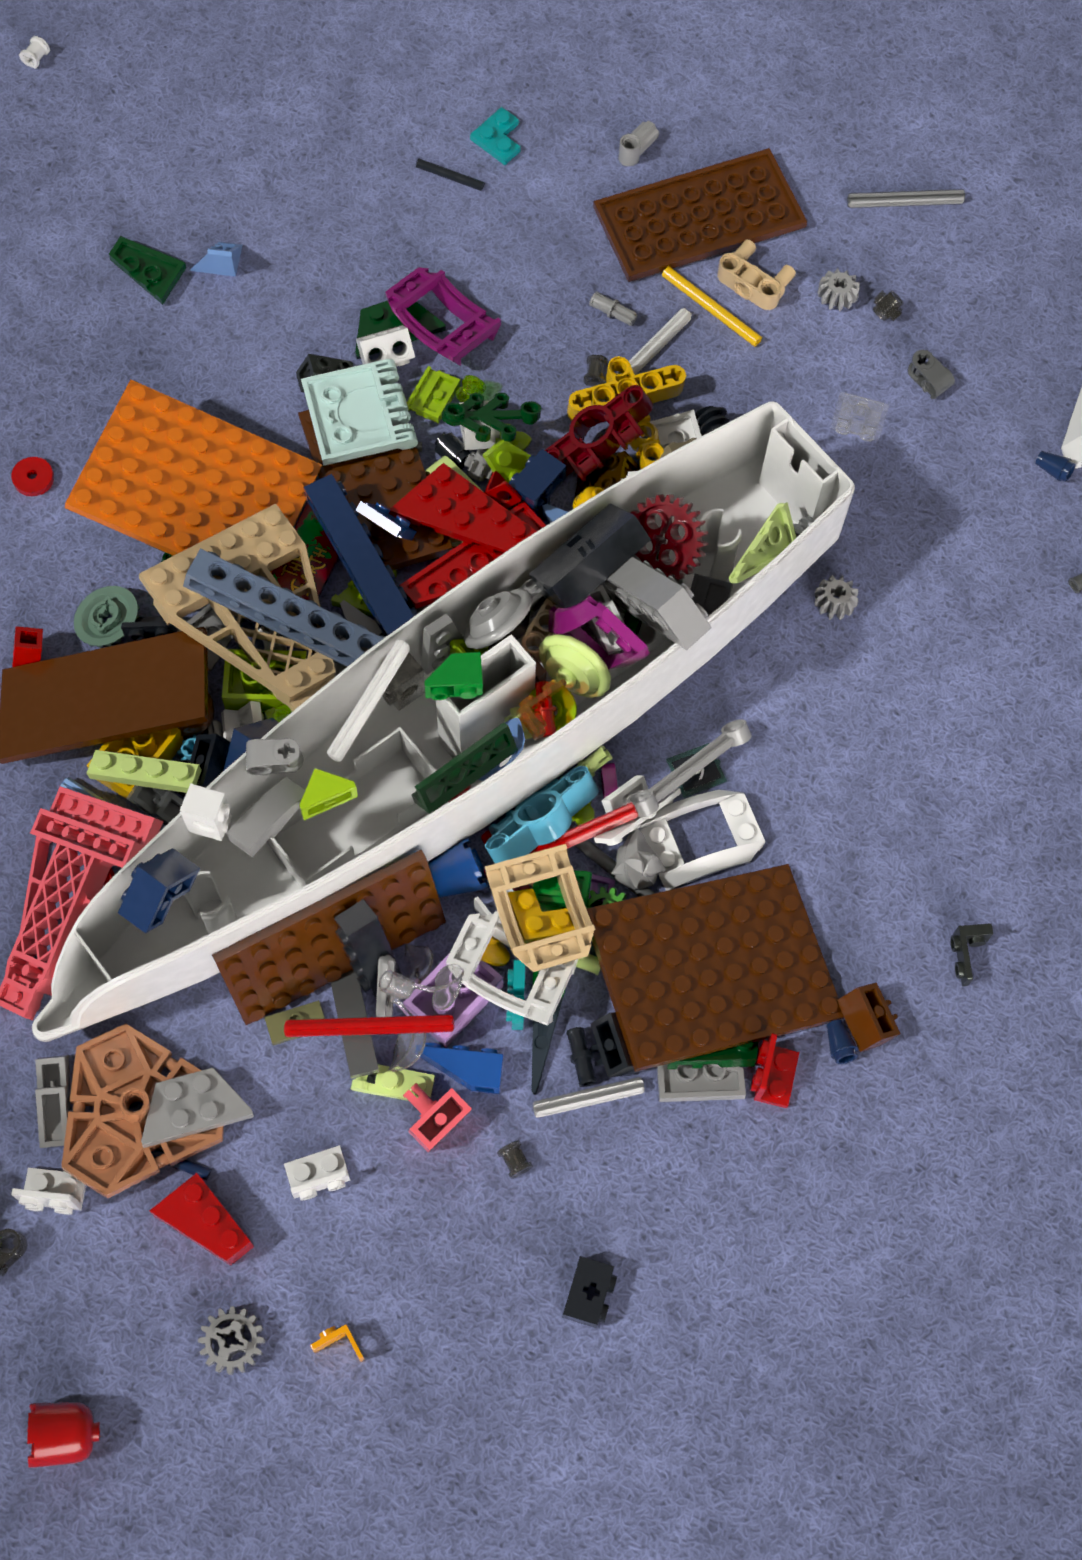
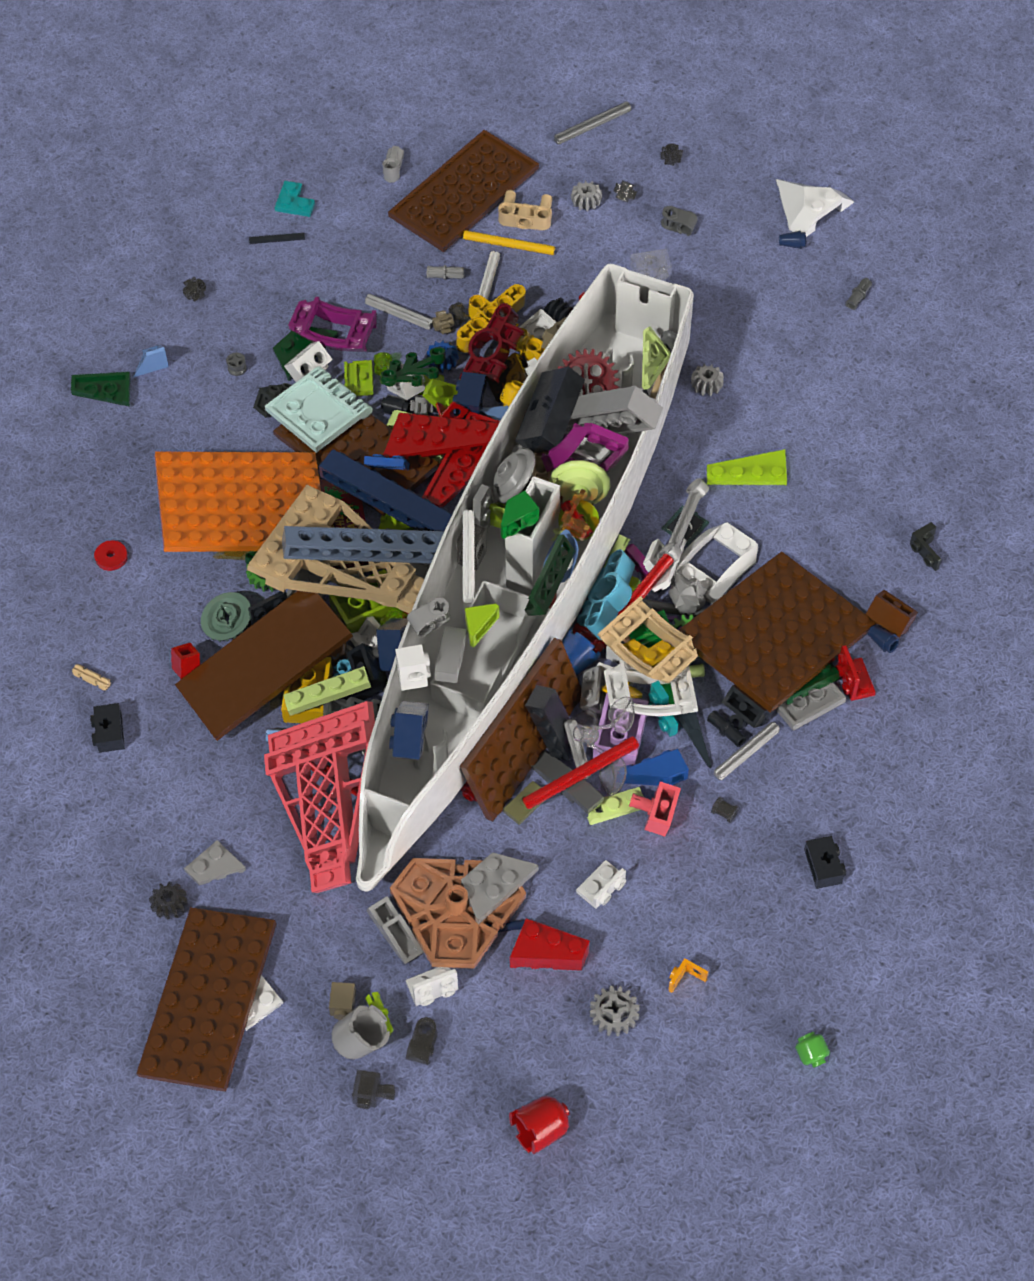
camera: 25 degrees left, 10 degrees down
(303, 305) = (236, 359): none -> dark grey wheel
(317, 194) = (194, 289): none -> clear smoke gear
(425, 1522) = (812, 1049): none -> bright green head
(447, 929) = (591, 694): none -> light grey bracket
(531, 333) = (399, 311): none -> light grey axle
(554, 414) = (451, 355): none -> blue gear
(570, 371) = (443, 322): none -> dark tan gear
(820, 741) = (751, 470): none -> lime wing
(974, 283) = (671, 154): none -> clear smoke gear

